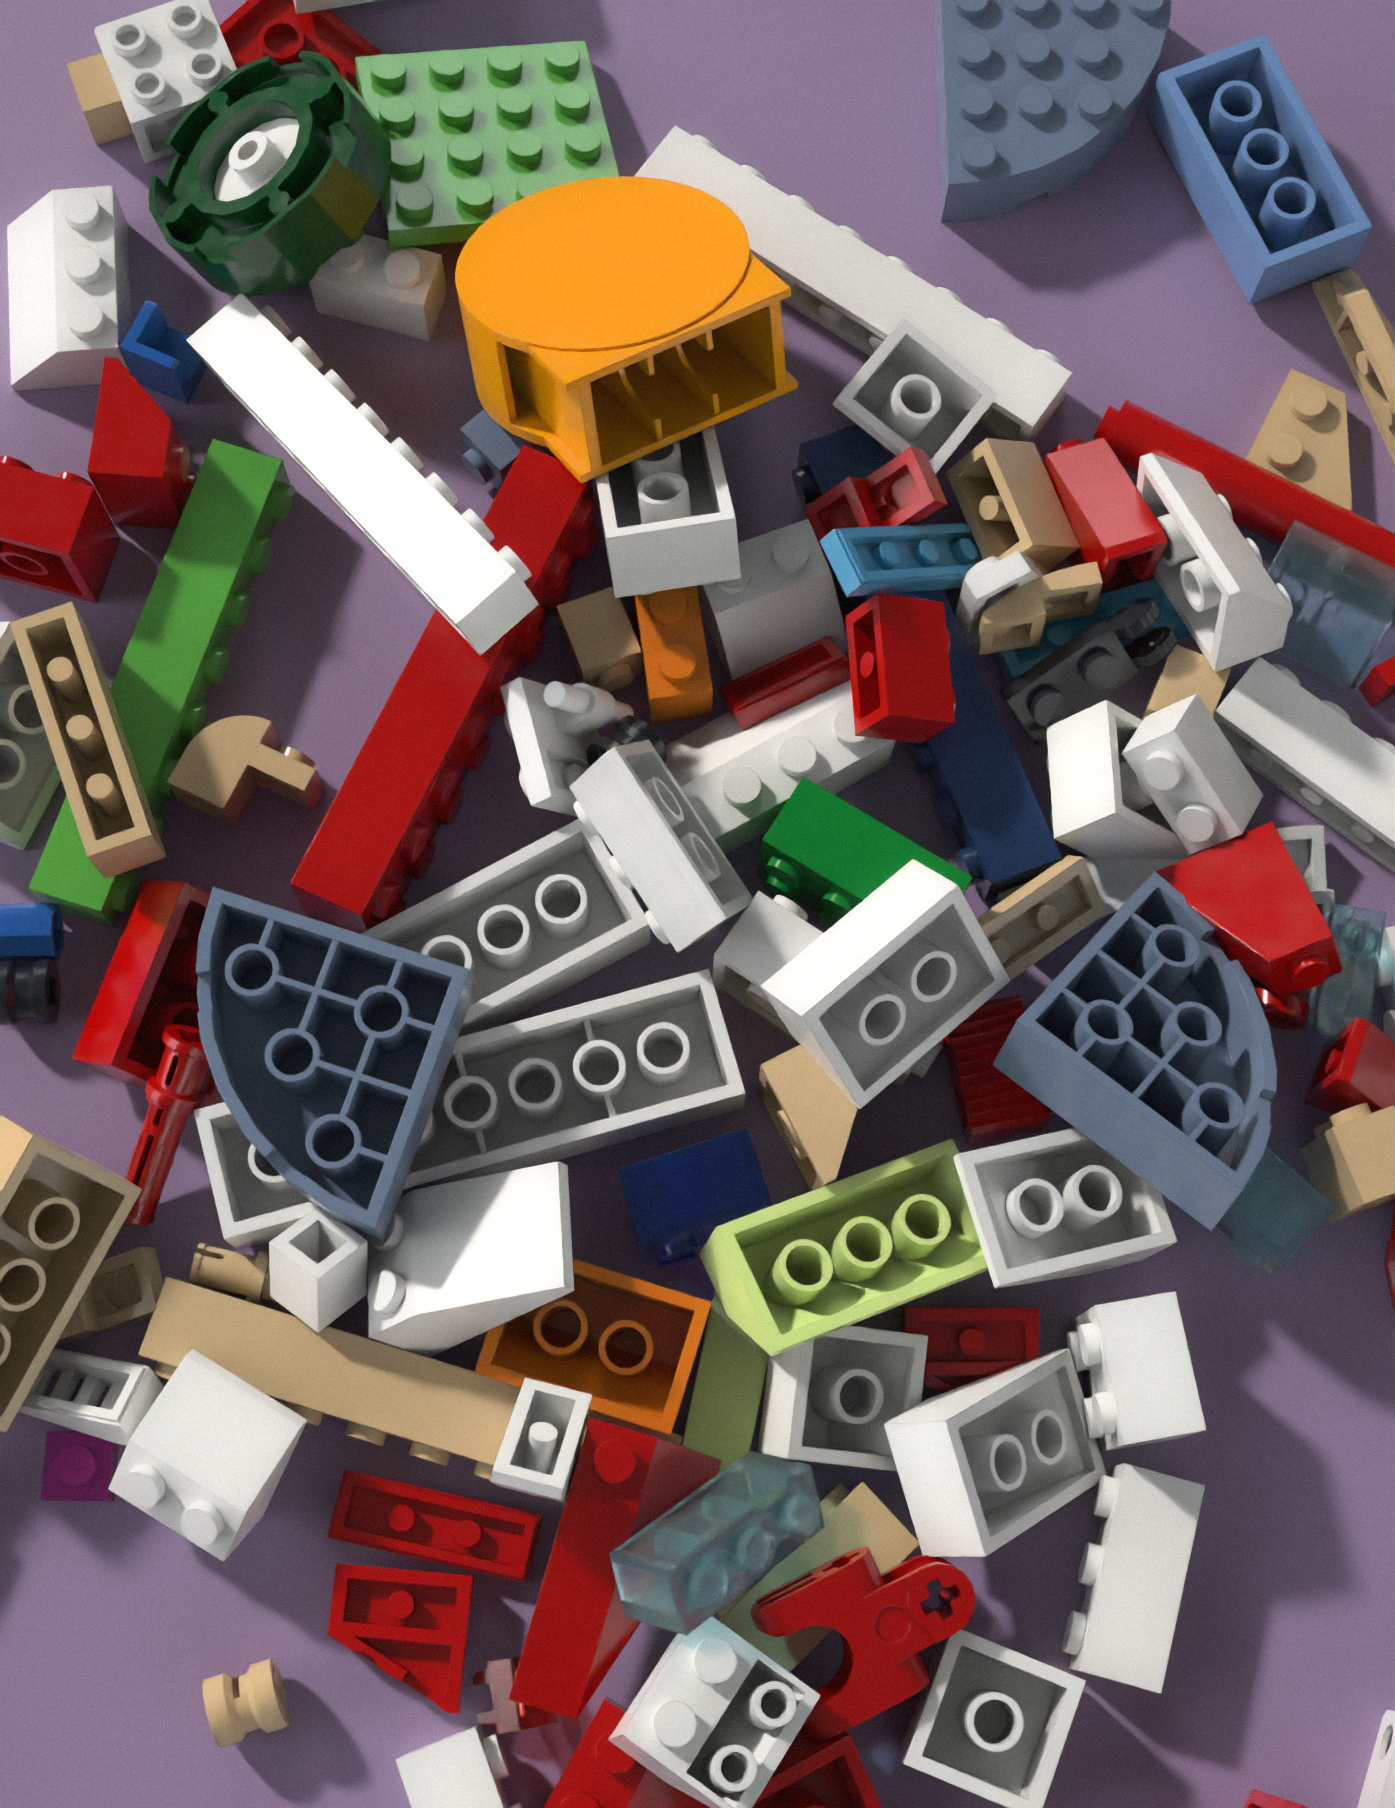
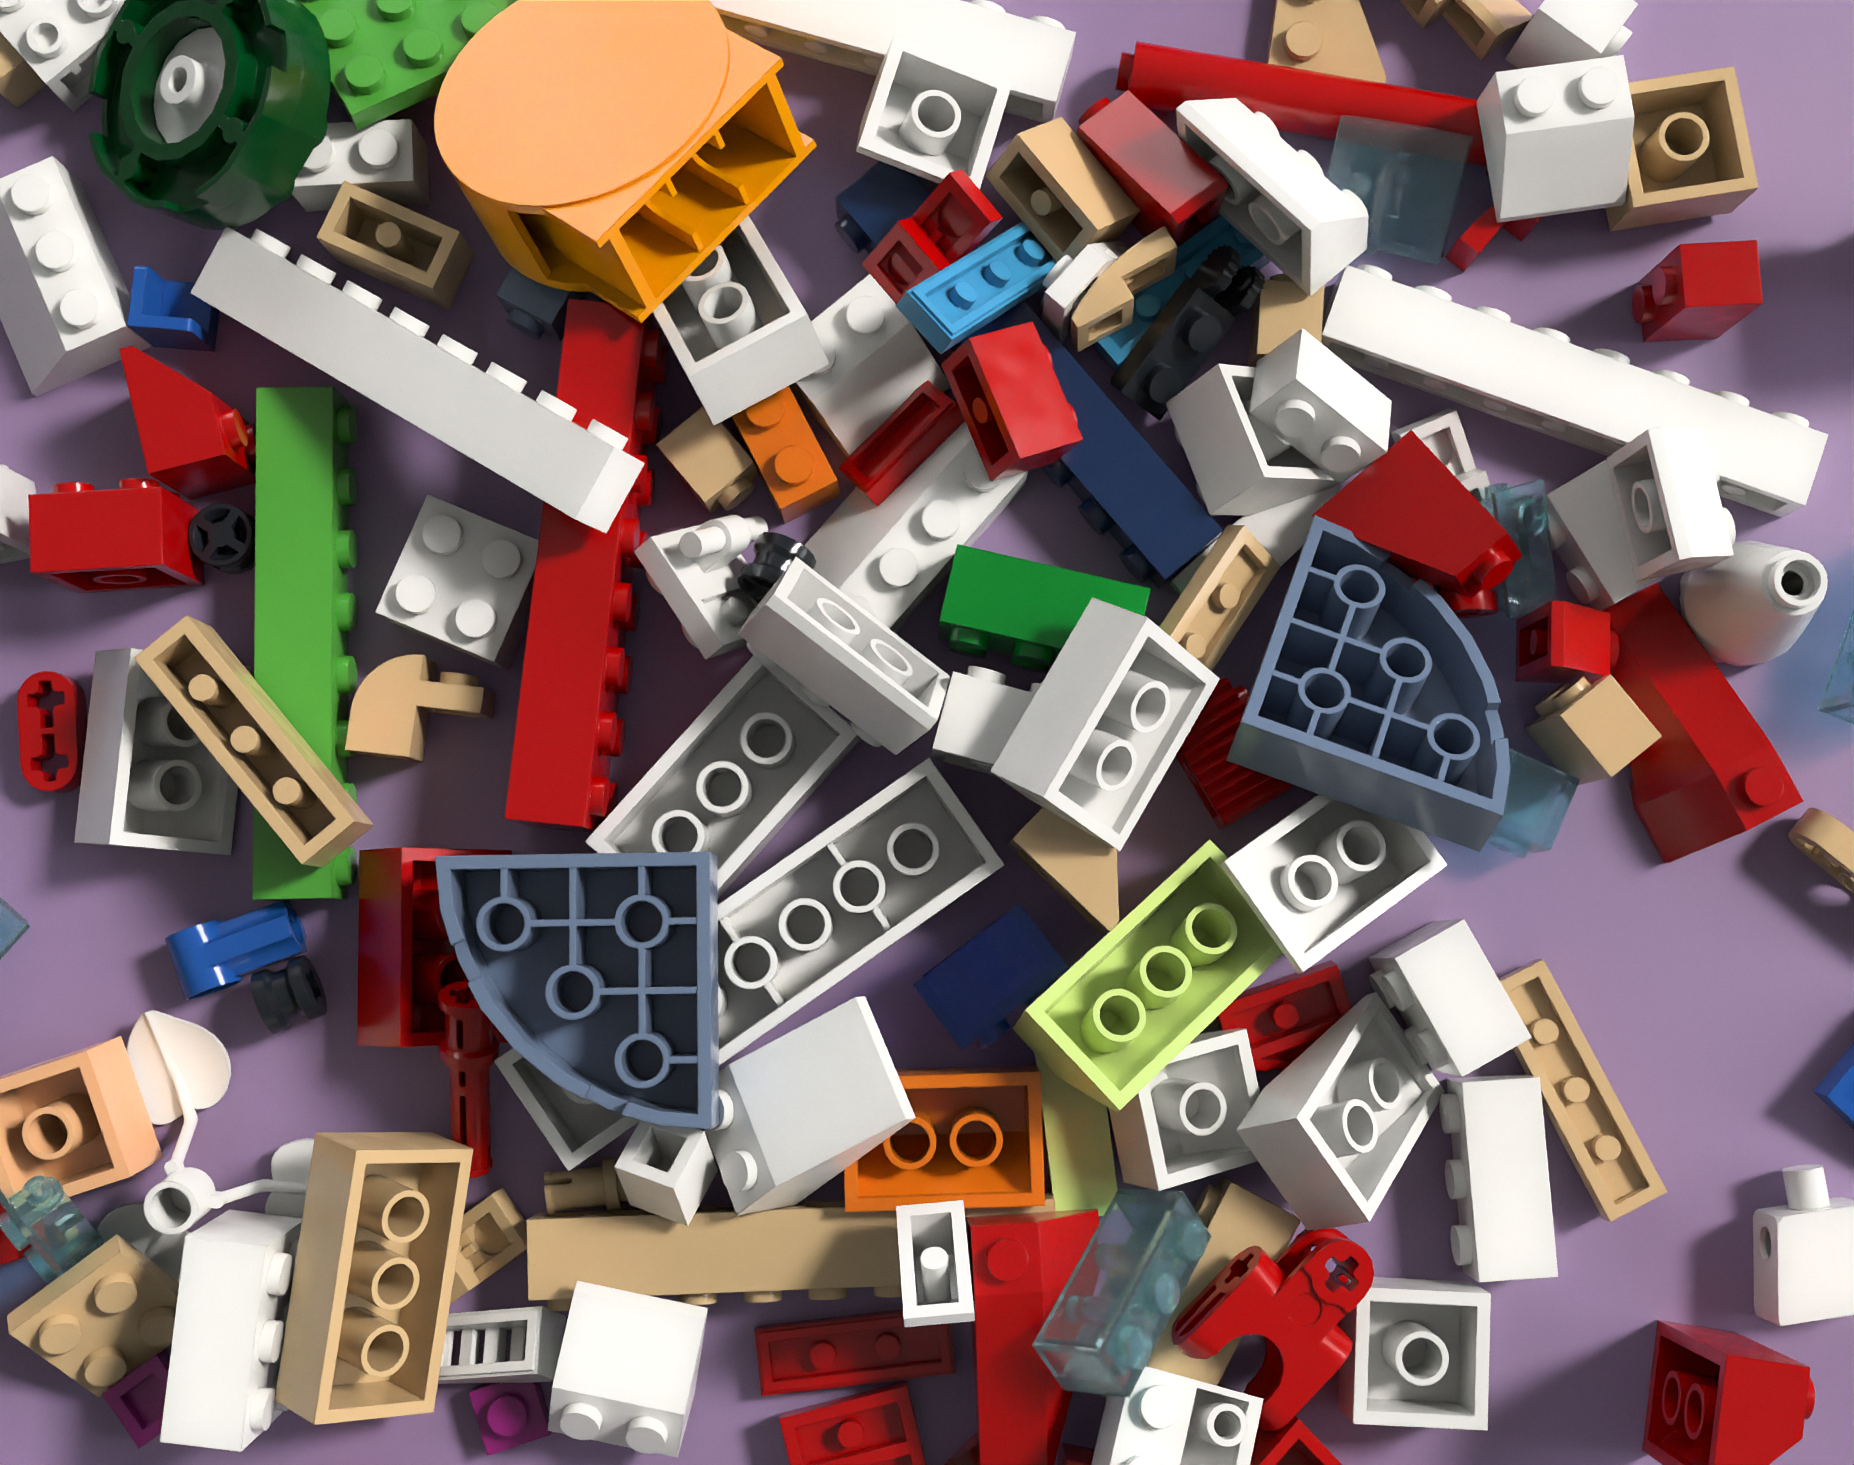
camera: 20 degrees left, 10 degrees up
(126, 552) = (215, 529): none -> black wheel
(330, 672) = (463, 583): none -> white brick
(386, 359) = (396, 245): none -> tan brick
(1240, 1526) = (1580, 1097): none -> tan plate

